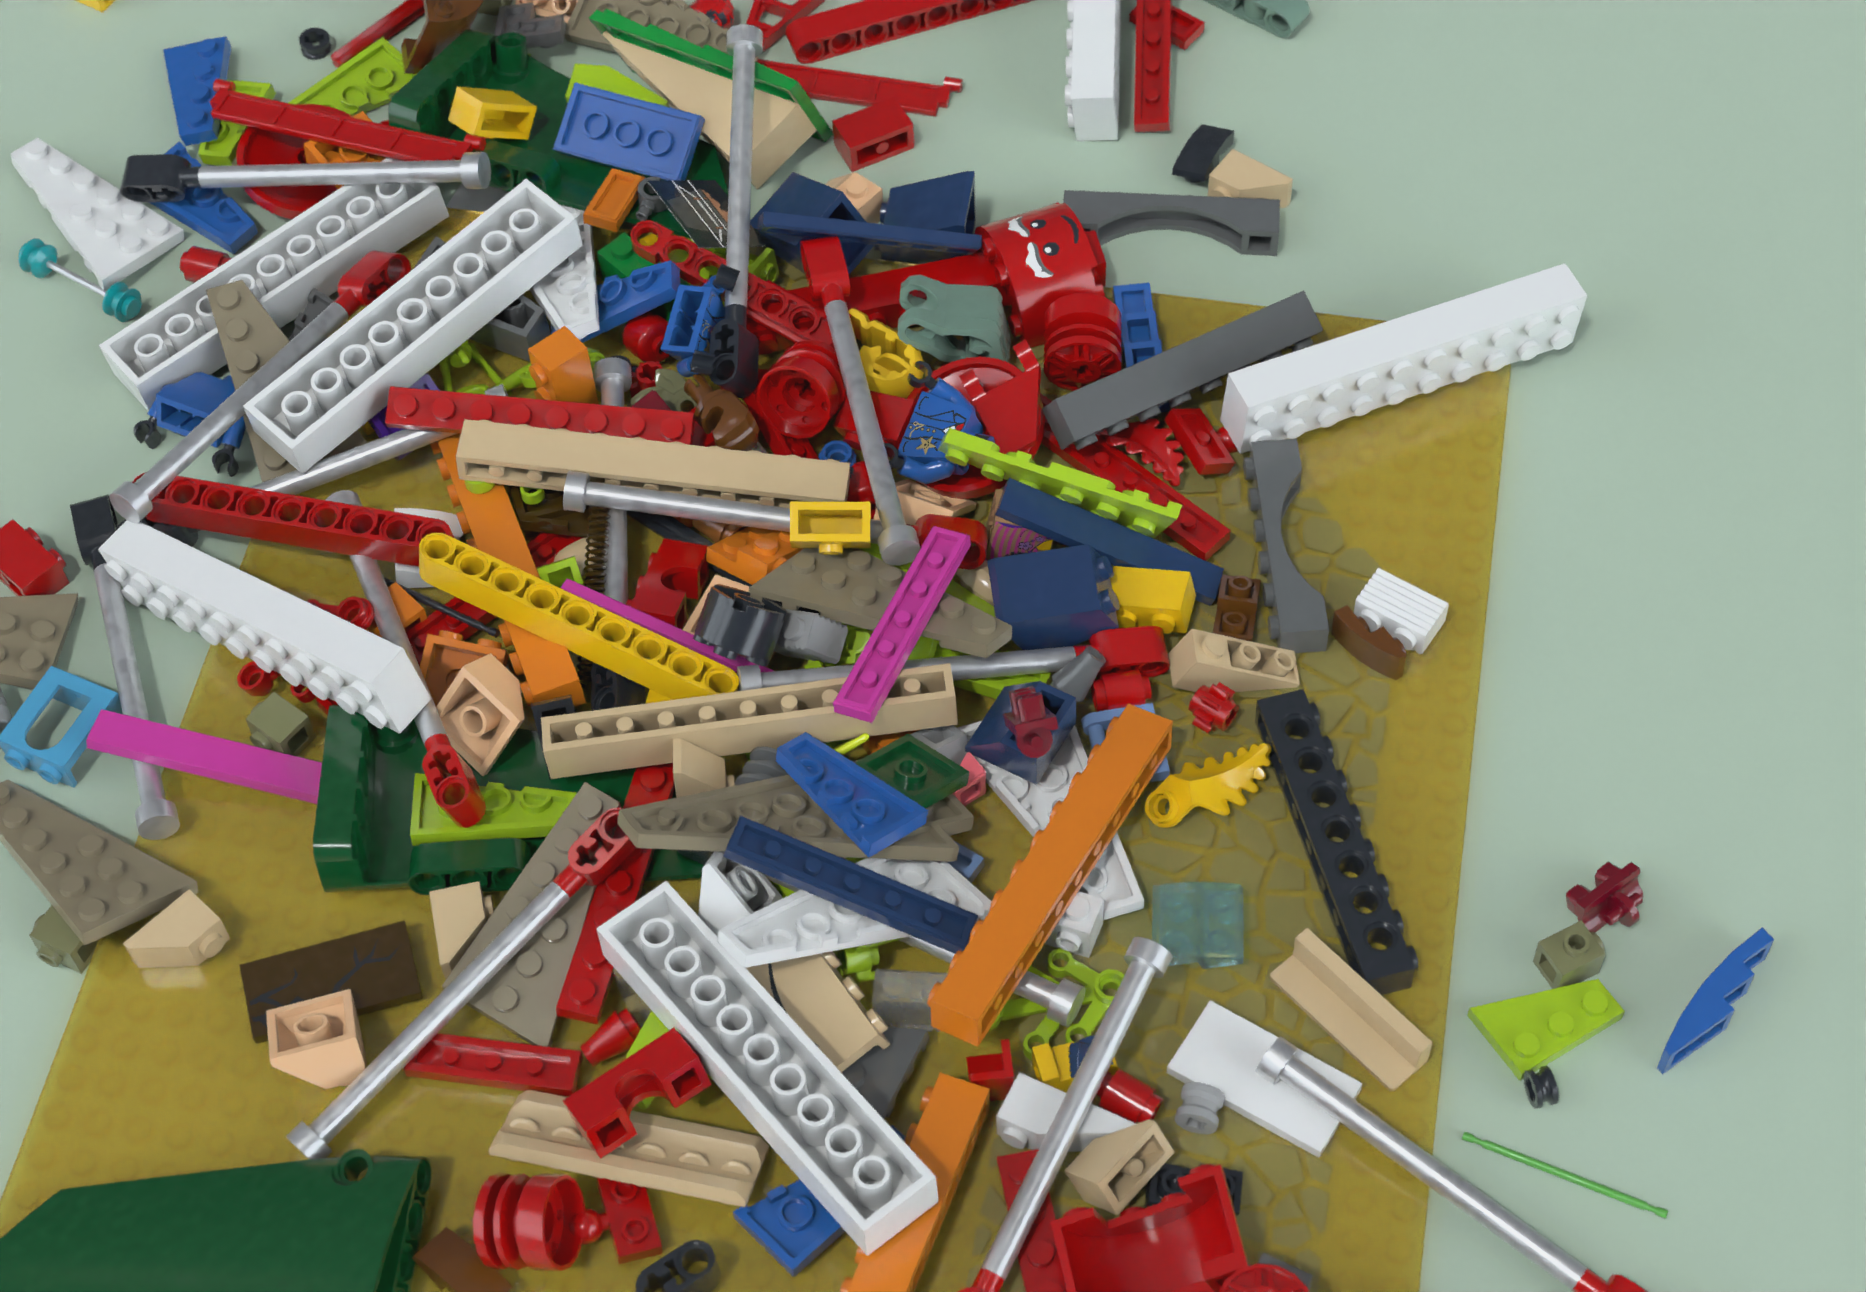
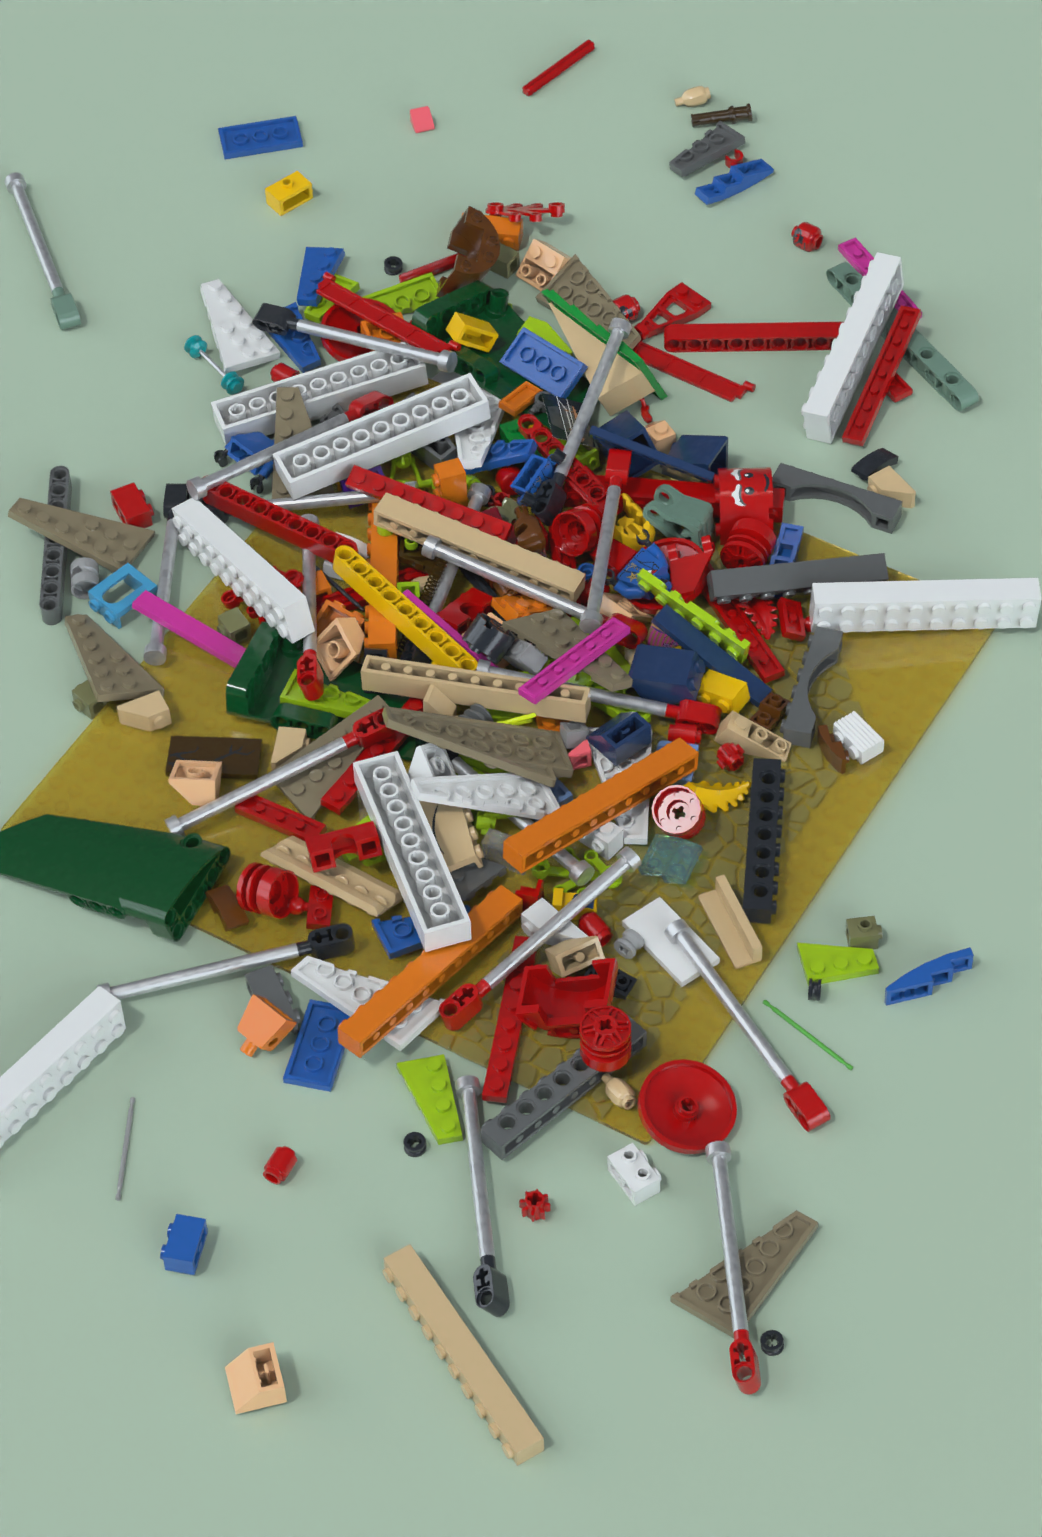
camera: 20 degrees right, 5 degrees down
(539, 32) = (518, 291): flat silver plate -> none
(612, 1037) = (346, 820): red cone -> none
(809, 168) = (645, 411): none -> red piece
(830, 526) = (558, 601): yellow brick -> none
(850, 885) = (487, 776): dark blue tile -> none
(853, 798) = (509, 737): blue wing -> none
(873, 134) = (688, 402): red brick -> none
(916, 770) = (548, 739): dark green plate -> none
(1030, 722) = (617, 728): dark red hips -> none
(1079, 673) = (662, 718): dark grey cone -> none
(1203, 823) = (674, 800): none -> wheel
(1611, 900) = (899, 912): dark red hips -> none

